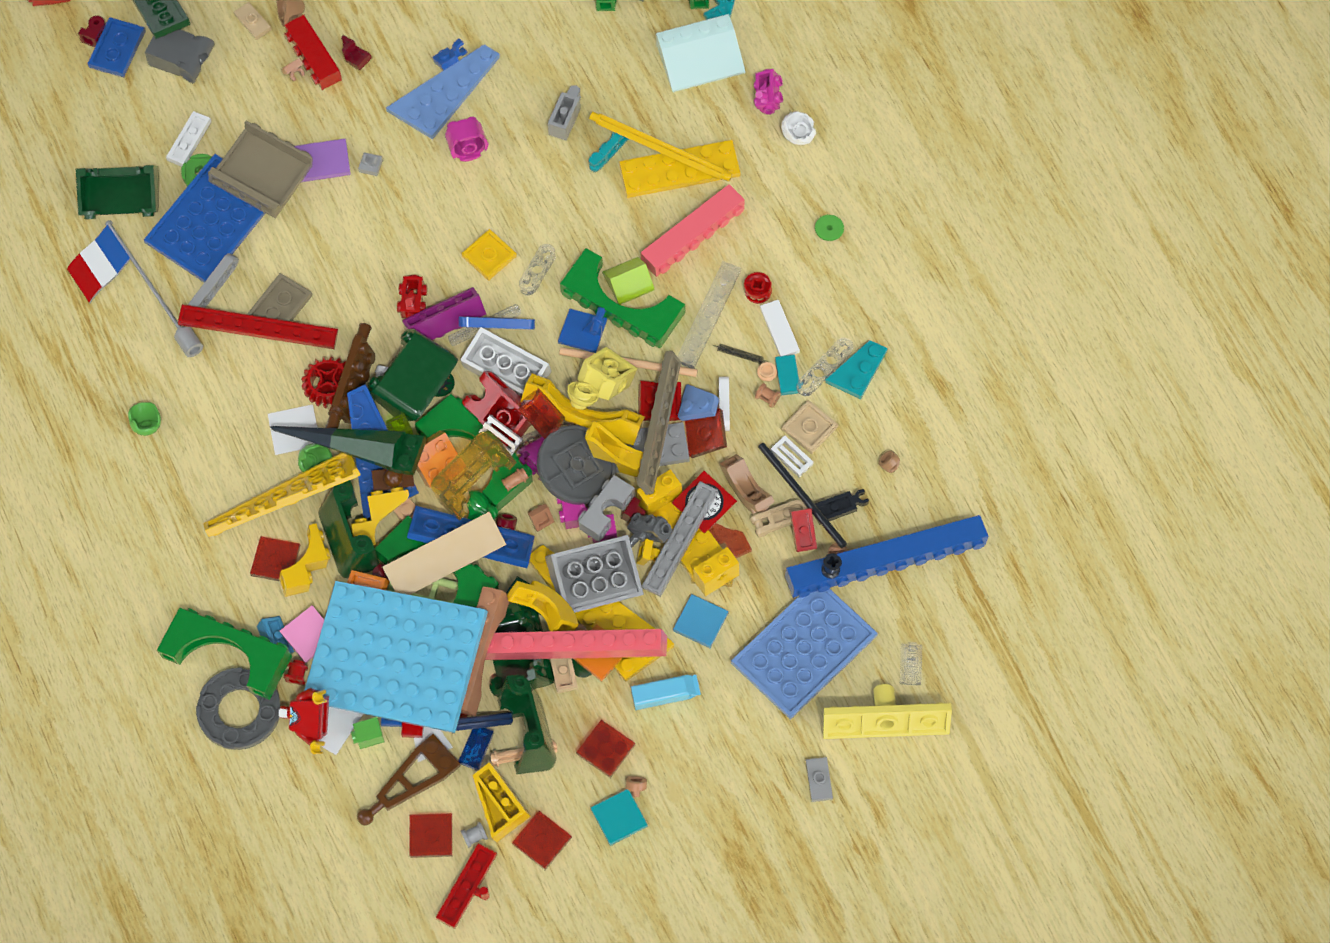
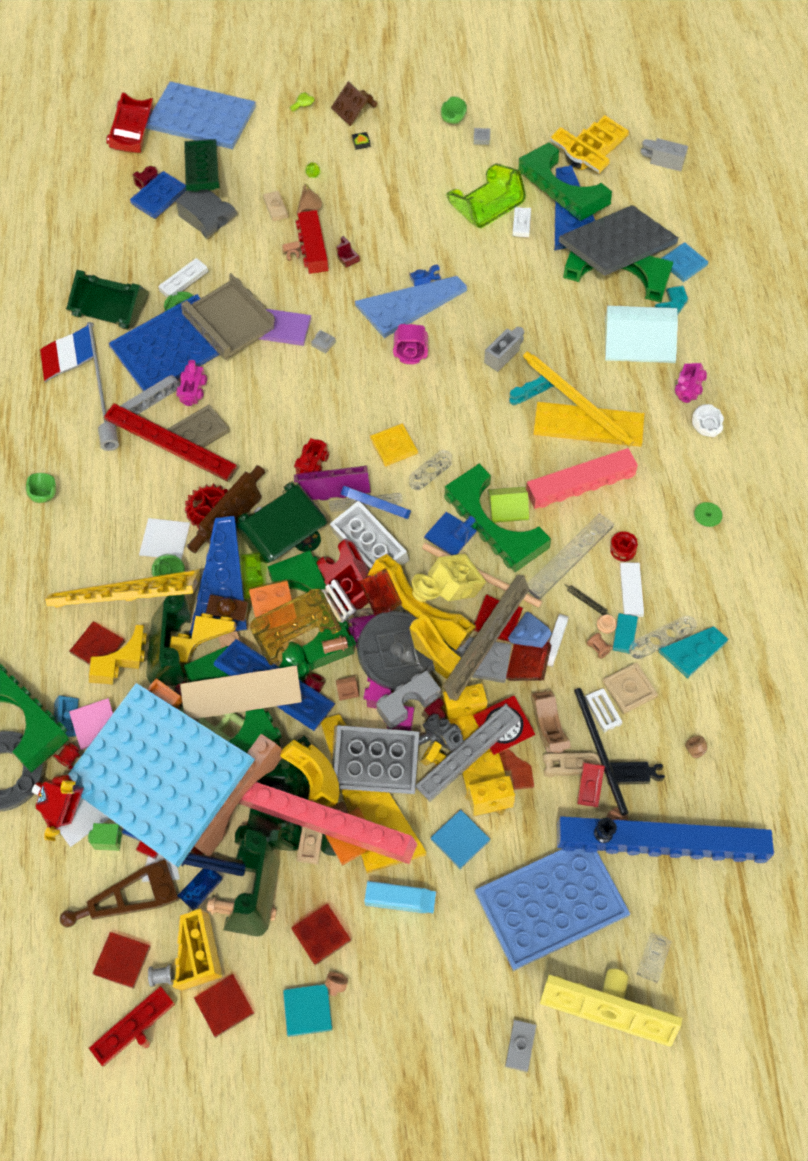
camera: 20 degrees right, 5 degrees down
(252, 260) = (191, 384): none -> dark pink brick
(386, 449) = (229, 579): dark green plate -> none

